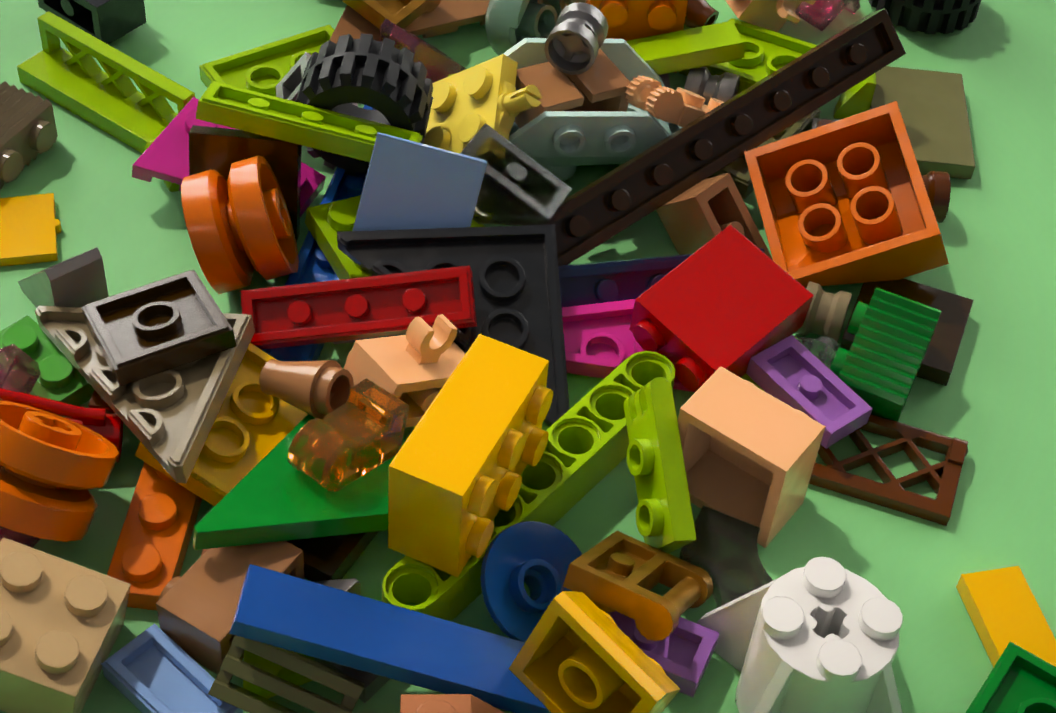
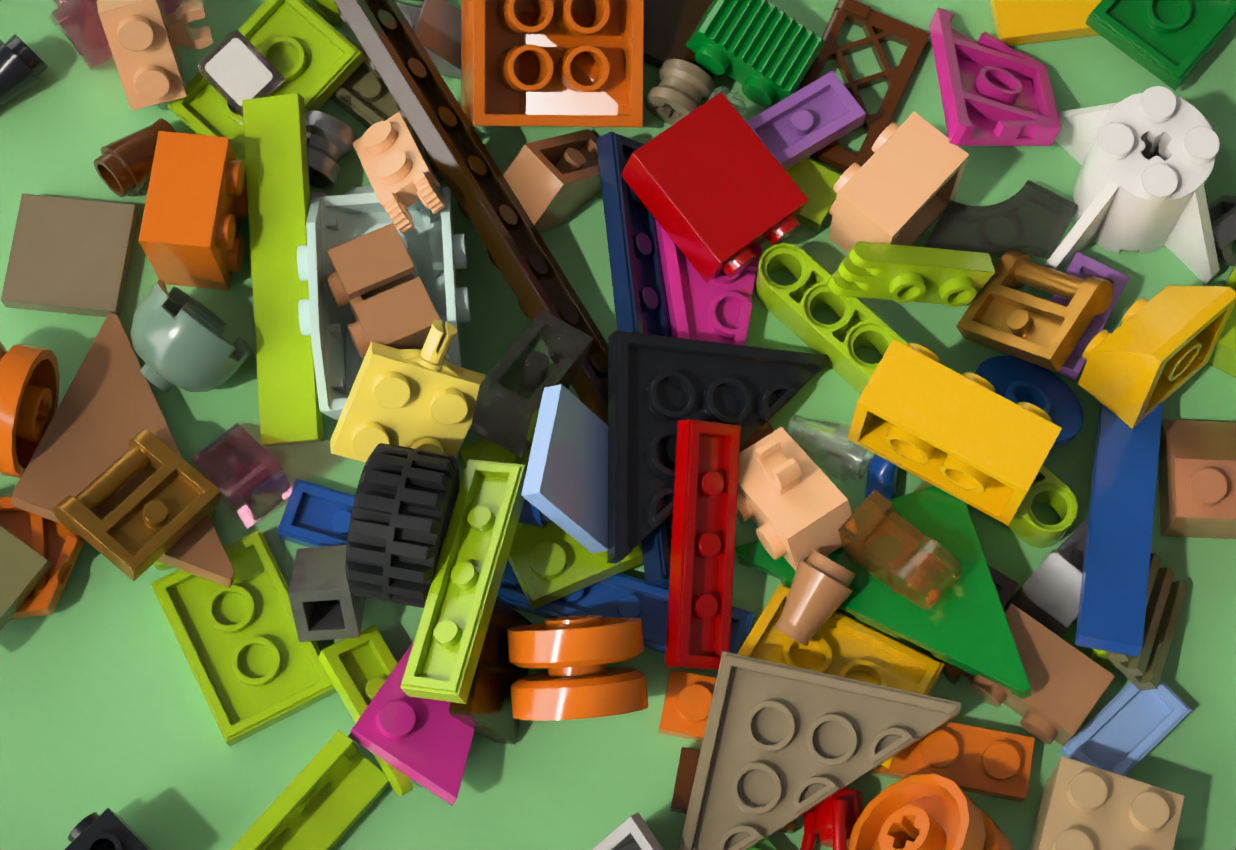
camera: 80 degrees left, 25 degrees up
(158, 327) = (746, 745): dark brown tile -> none
(576, 38) = (340, 267): flat silver wheel -> none
(766, 32) = (239, 71): none -> white slope
(885, 531) = (991, 90): none -> dark pink wing

